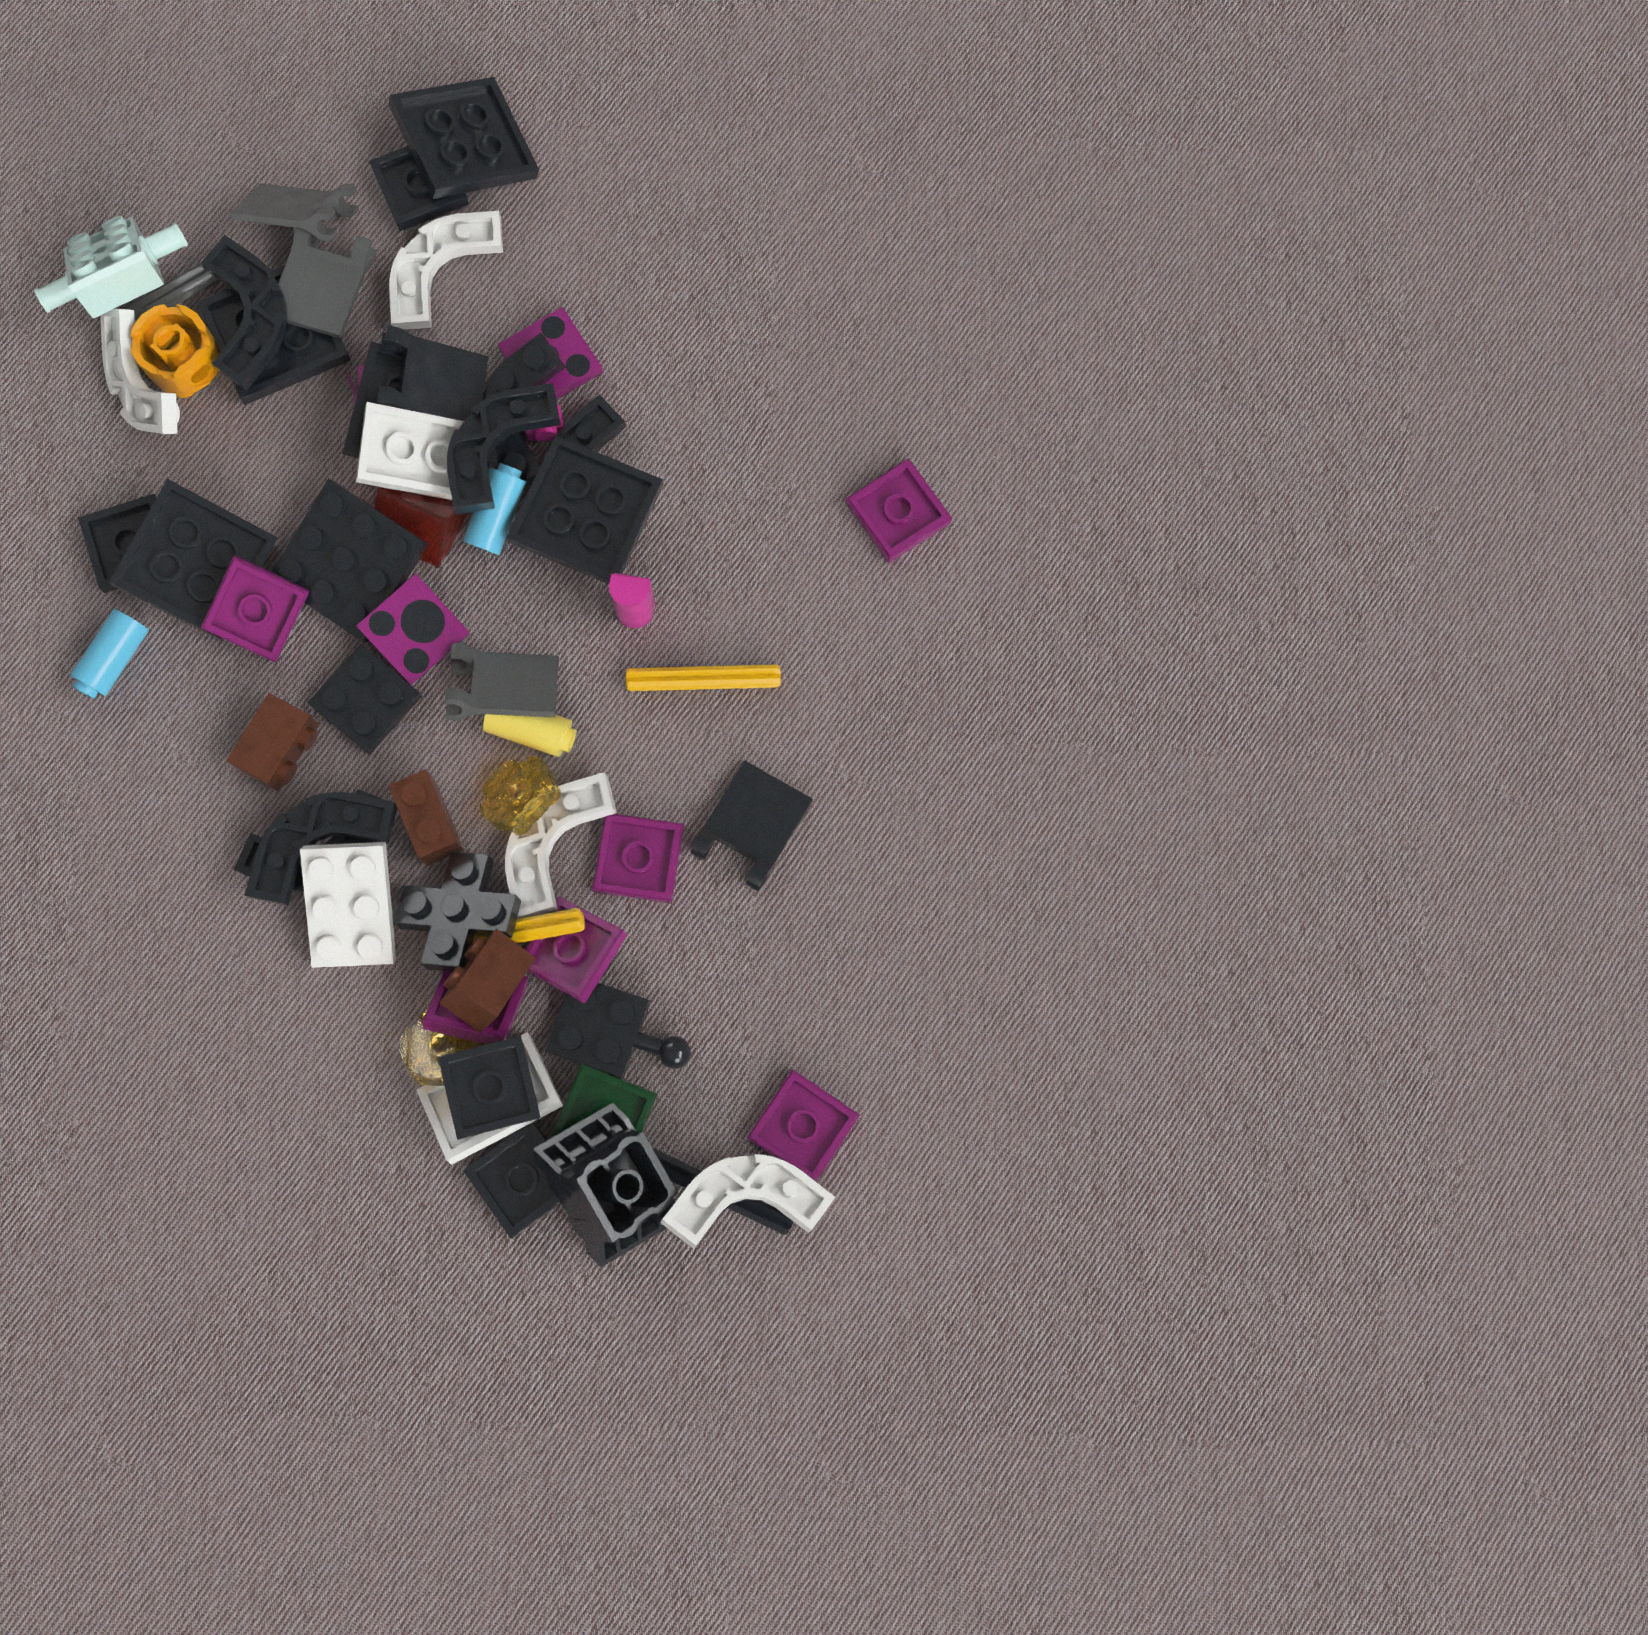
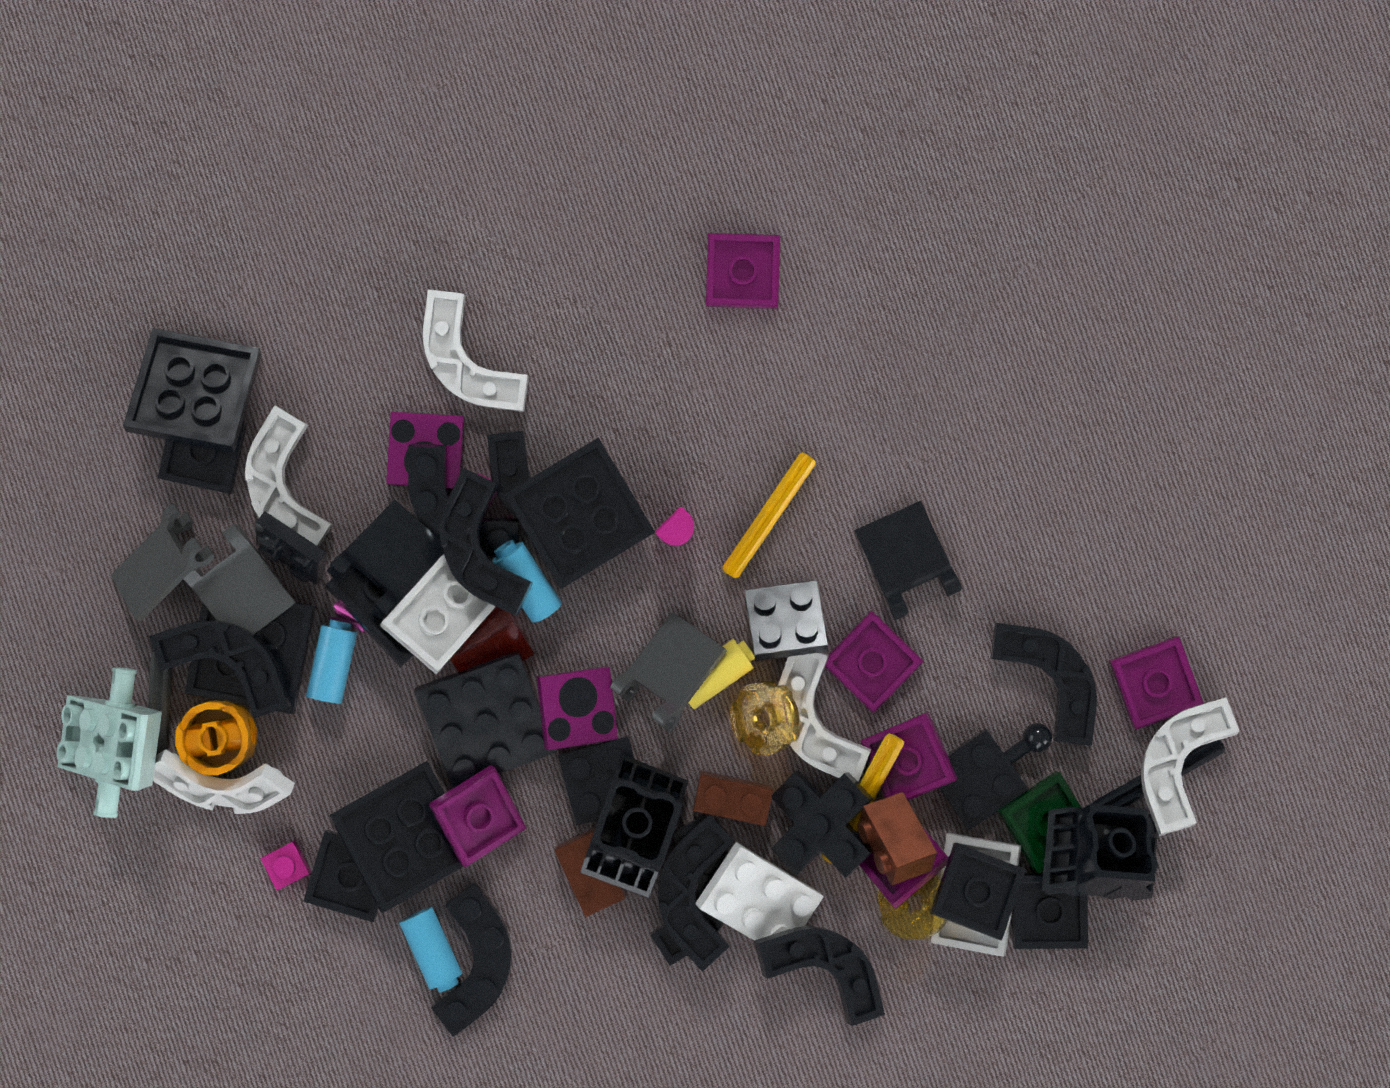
camera: 45 degrees left, 10 degrees up
(102, 485) = (286, 865): none -> dark pink plate
(132, 716) = (491, 960): none -> black plate
(309, 402) = (331, 662): none -> medium azure brick
(338, 743) = (635, 826): none -> black slope
(343, 1003) = (833, 952): none -> black plate
(381, 292) = (284, 544): none -> black plate
(619, 753) = (786, 620): none -> plate
(639, 329) = (453, 367): none -> white plate
(756, 1030) = (1066, 669): none -> black plate

